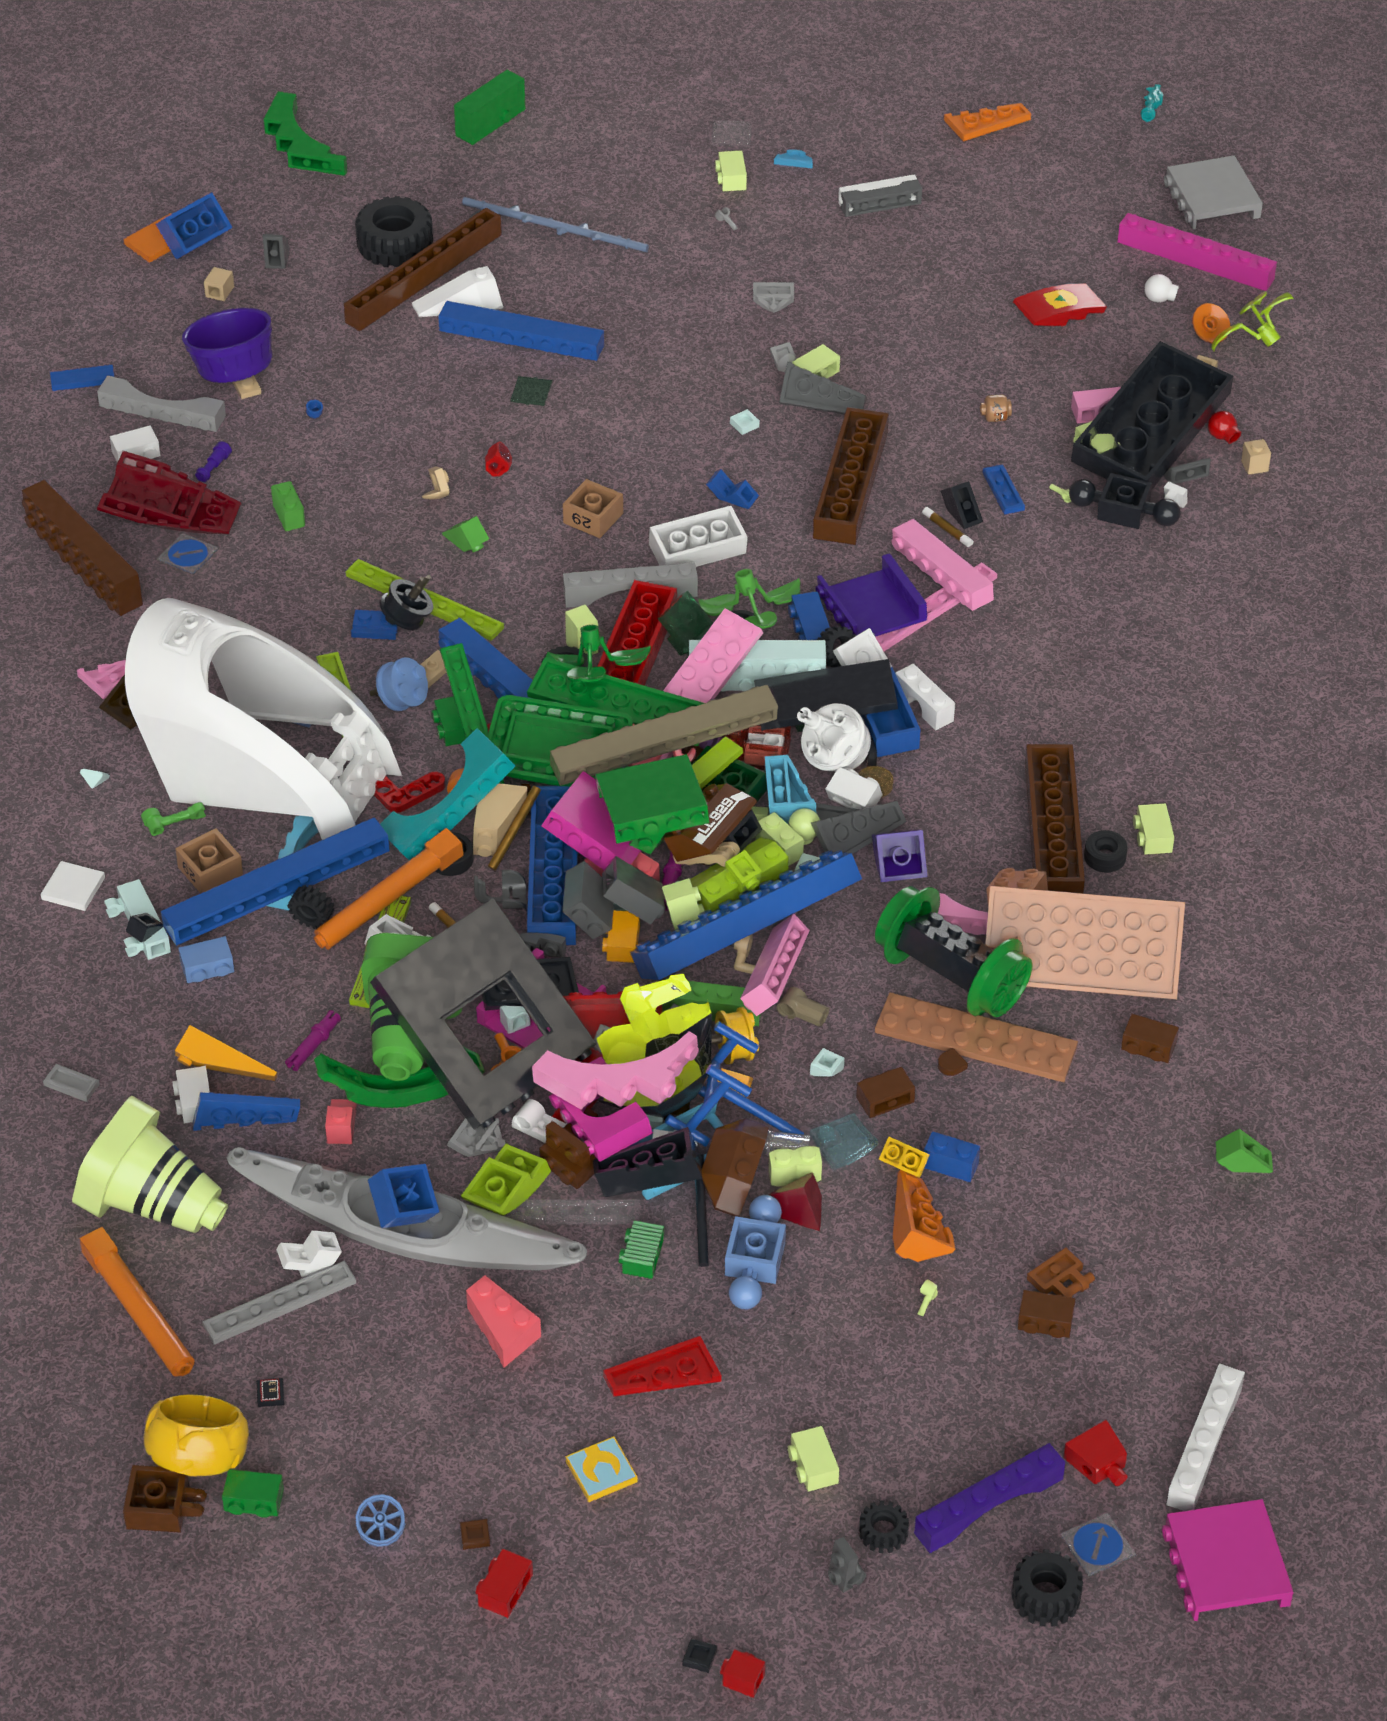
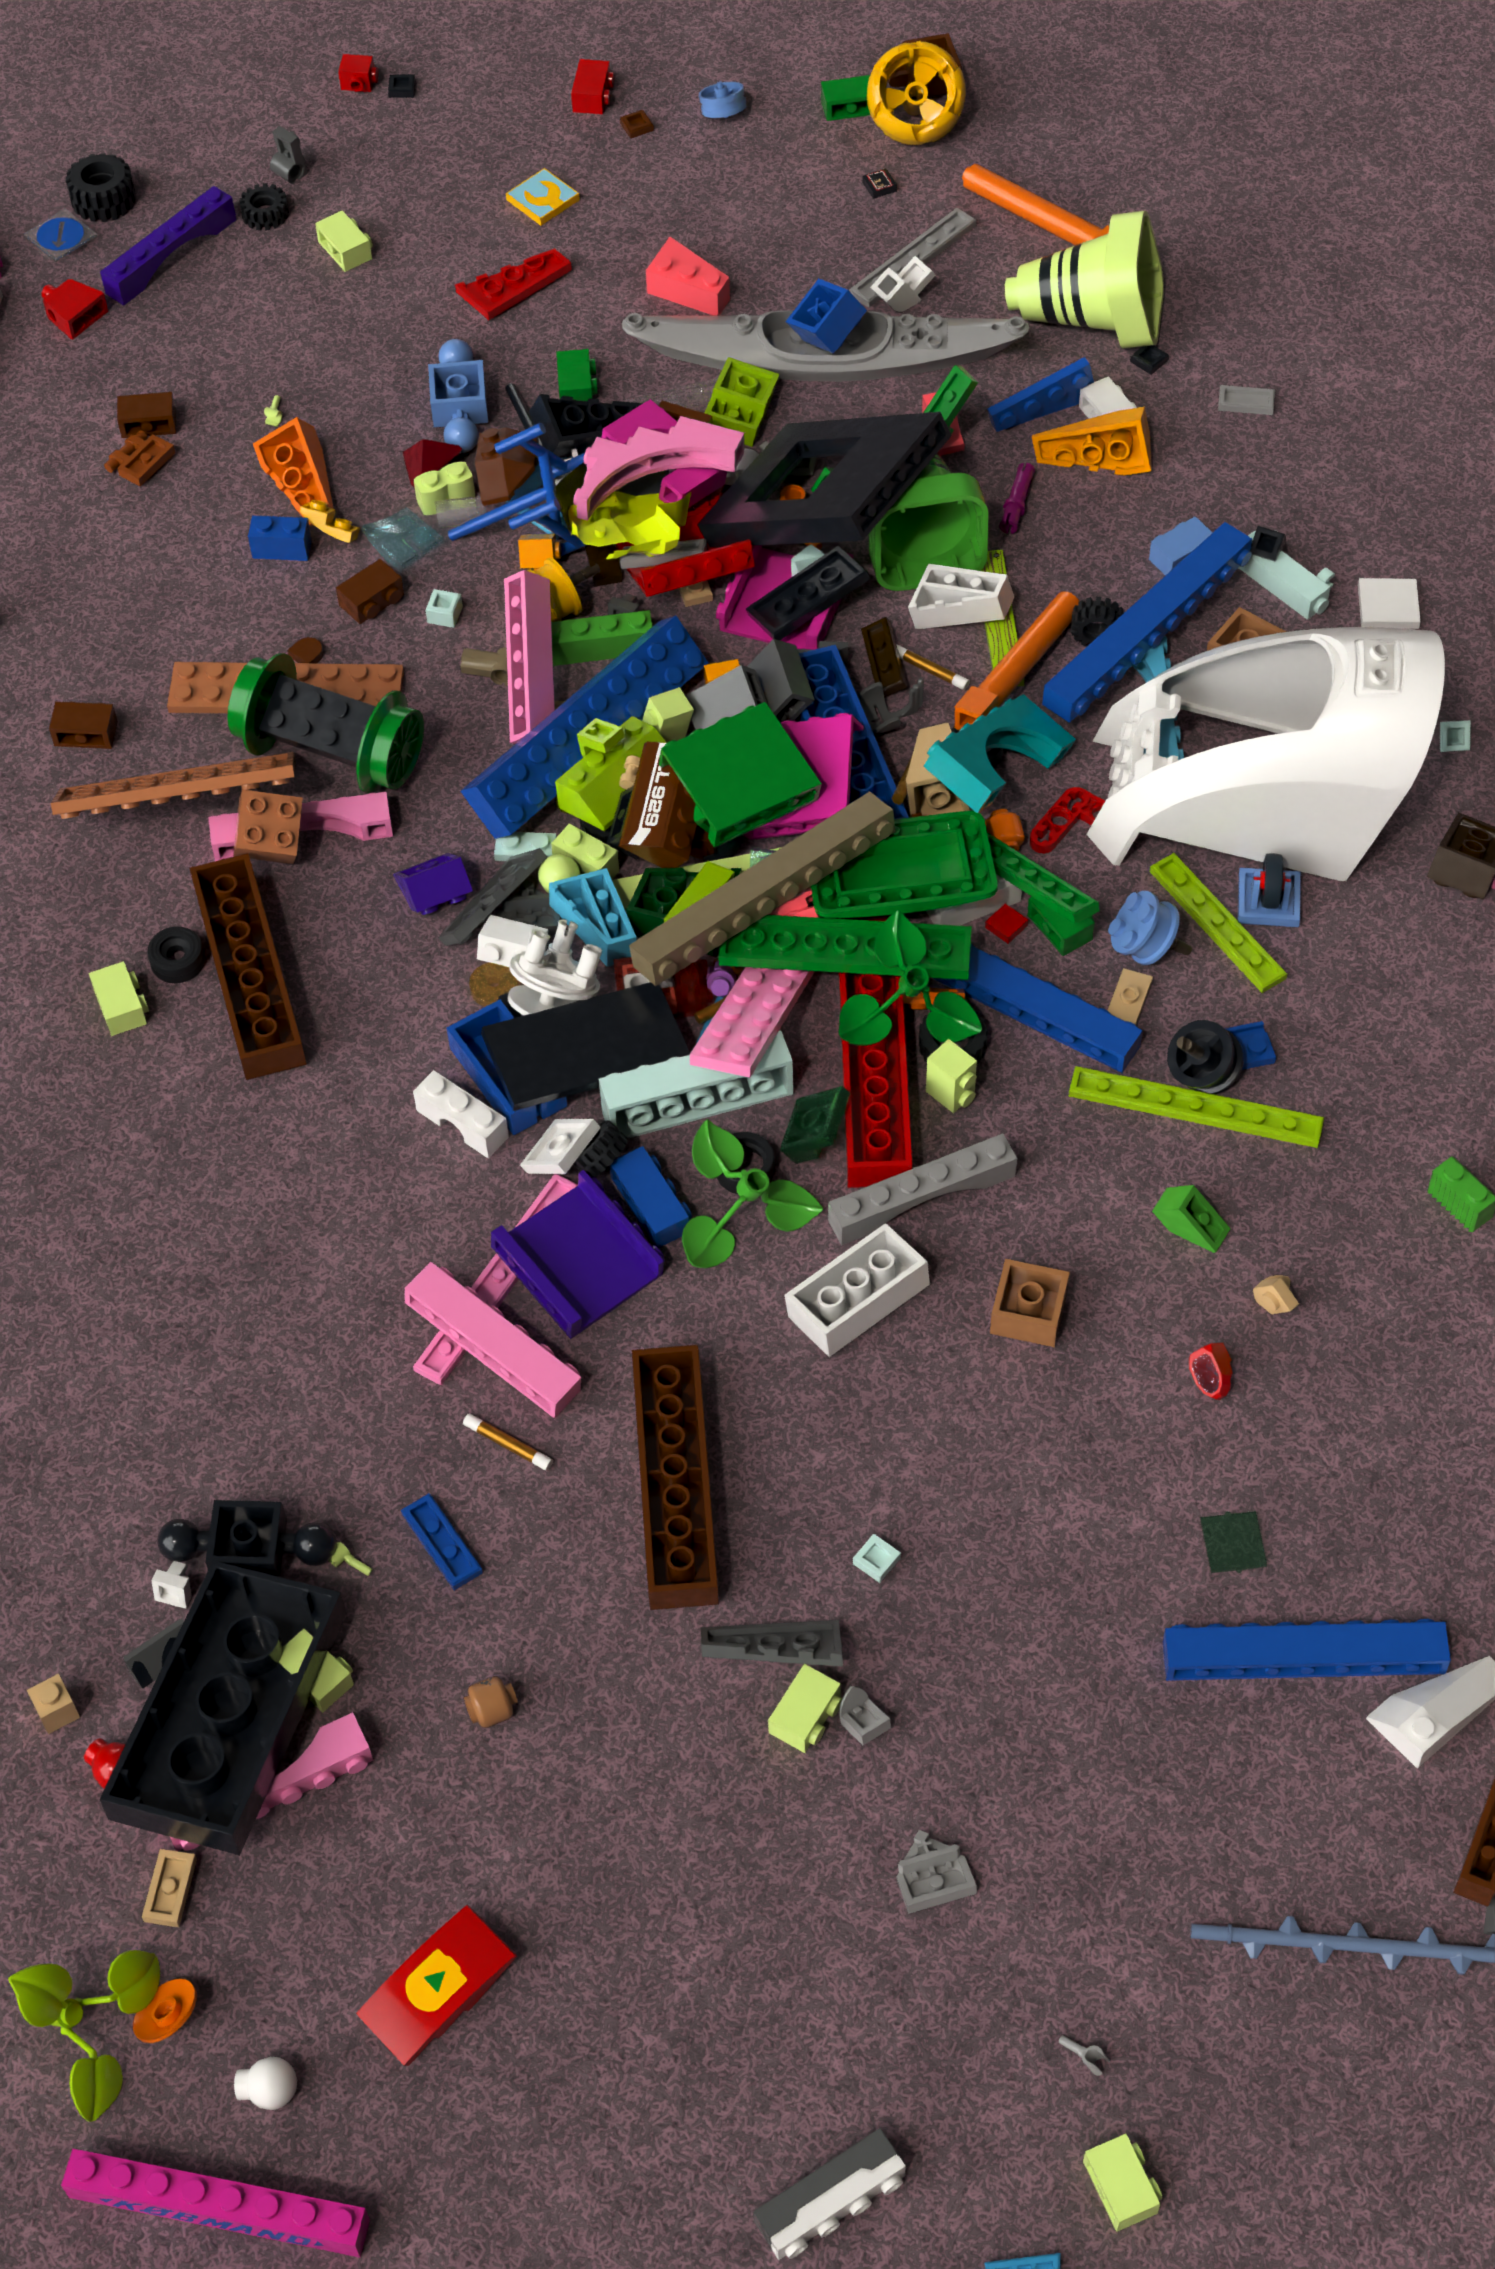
camera: 165 degrees right, 10 degrees up
(738, 494) = (840, 1415): blue slope -> none
(962, 504) = (496, 1477): black slope -> none

